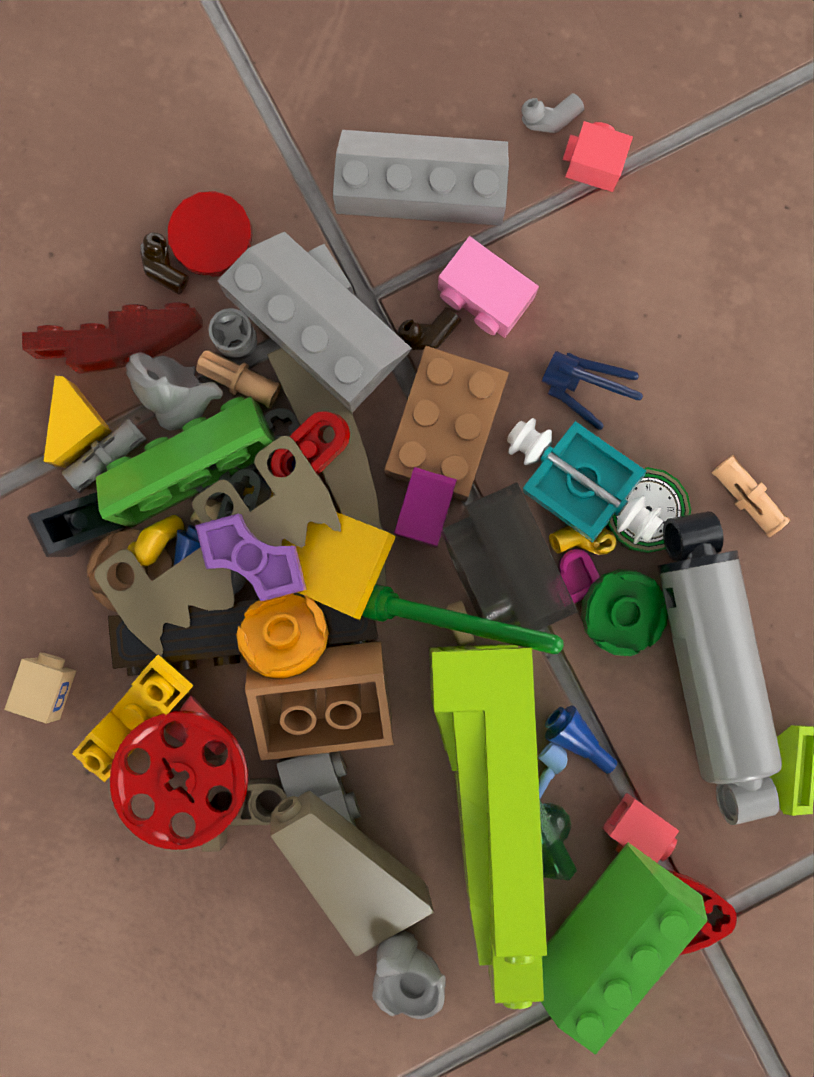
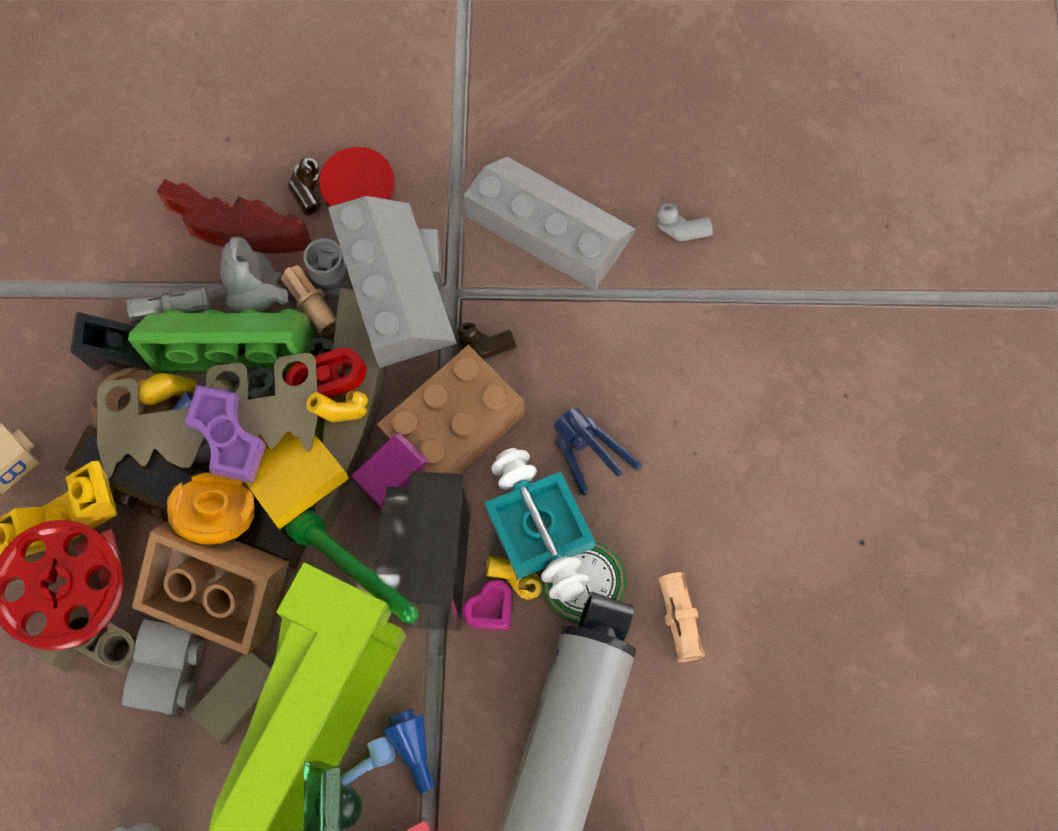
camera: 30 degrees right, 15 degrees down
(71, 425) = (158, 267): yellow slope -> none
(341, 478) = (335, 411): none -> yellow arm
(348, 873) = (141, 744): dark tan slope -> none
(395, 782) = (232, 697): none -> dark tan tile
(486, 288) = (550, 330): bright pink piece -> none
(597, 155) = (700, 273): coral brick -> none
(624, 612) = (513, 657): green tile -> none

